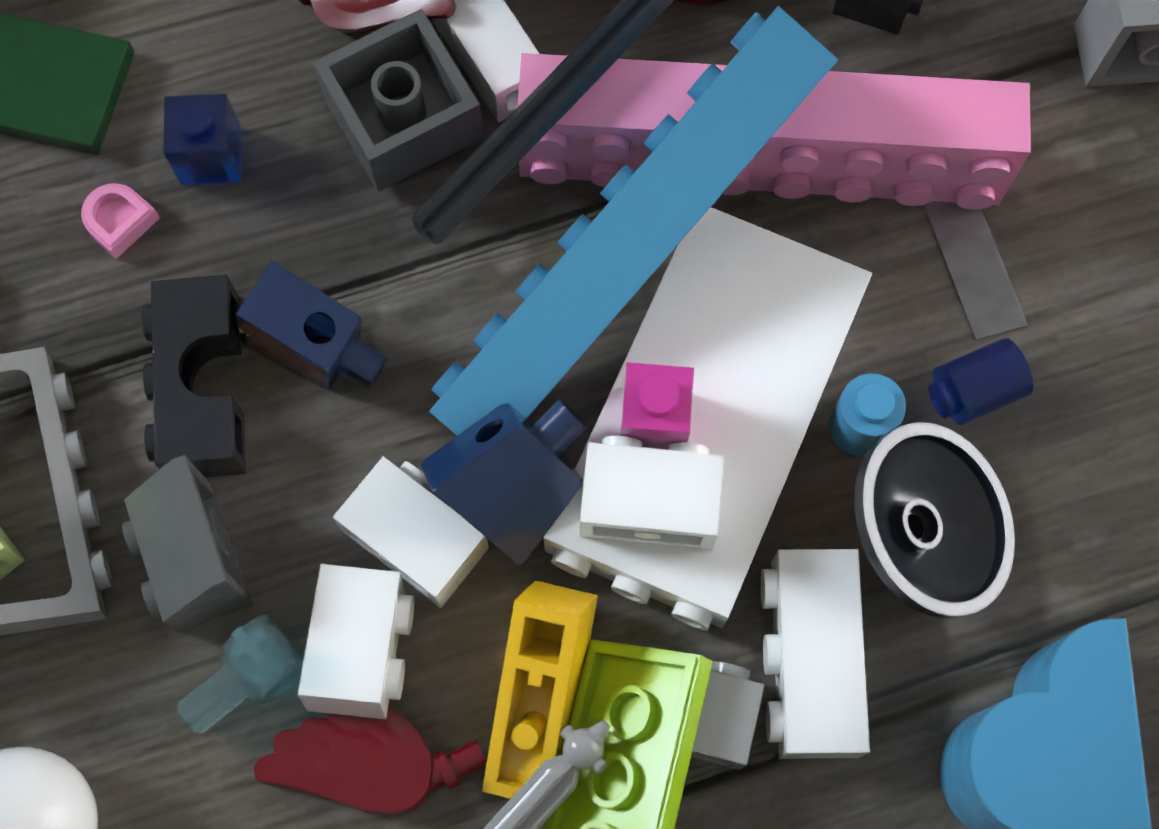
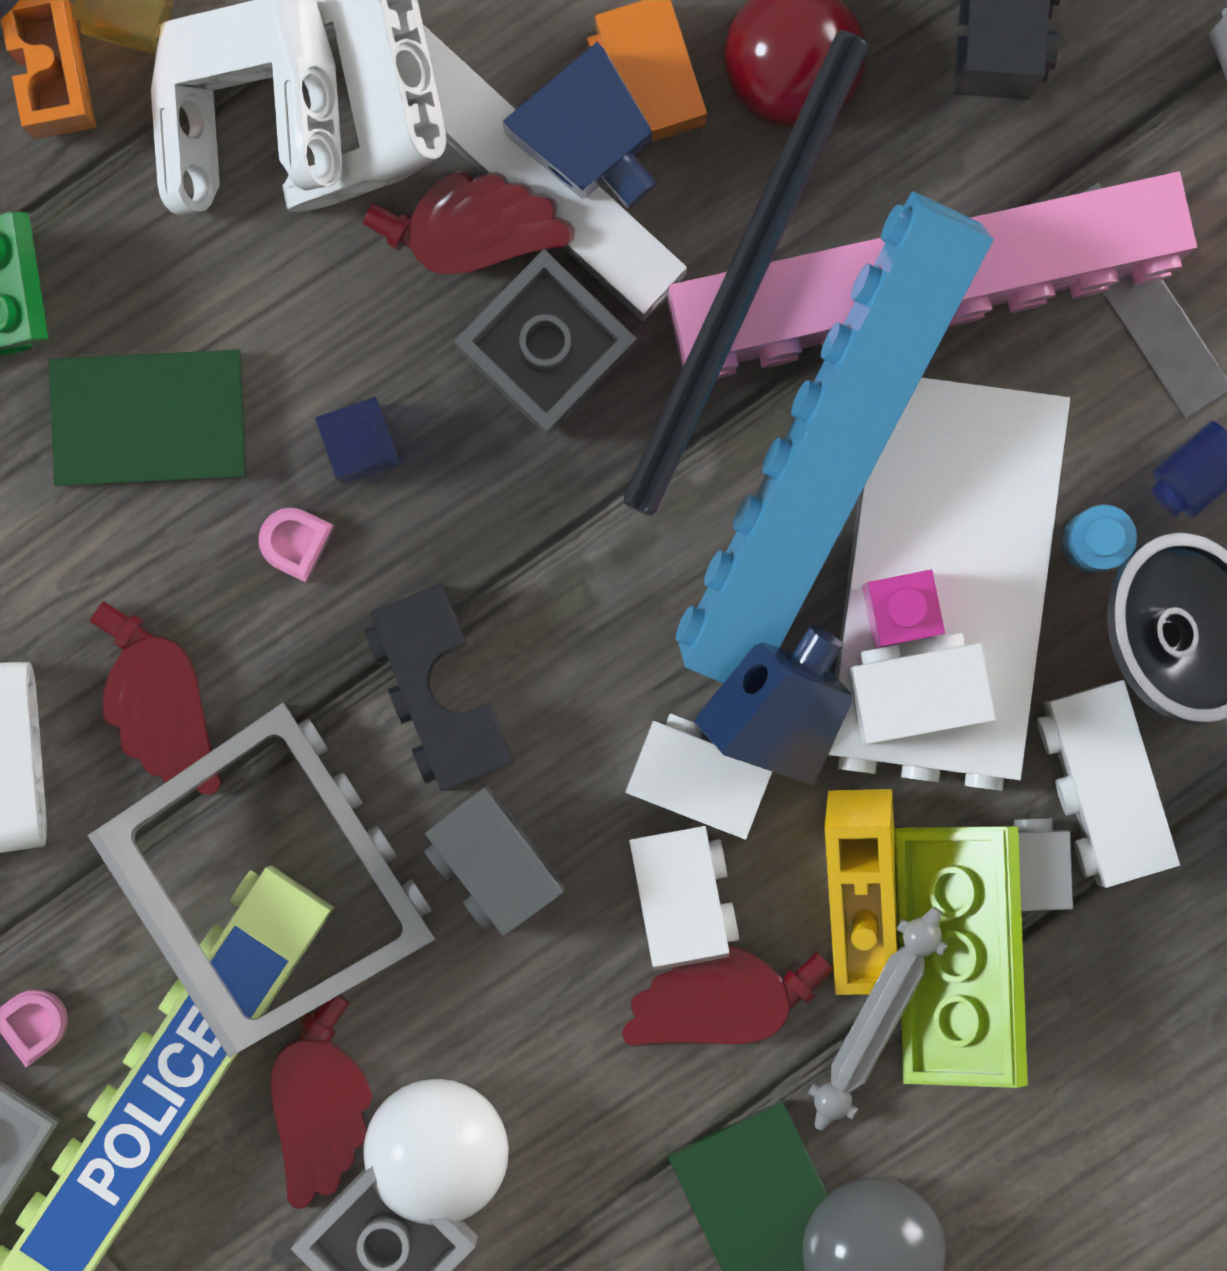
camera: 20 degrees left, 15 degrees up
(257, 664) = (594, 946): clear light blue axle -> none
(288, 314) = (514, 610): dark blue torso -> none

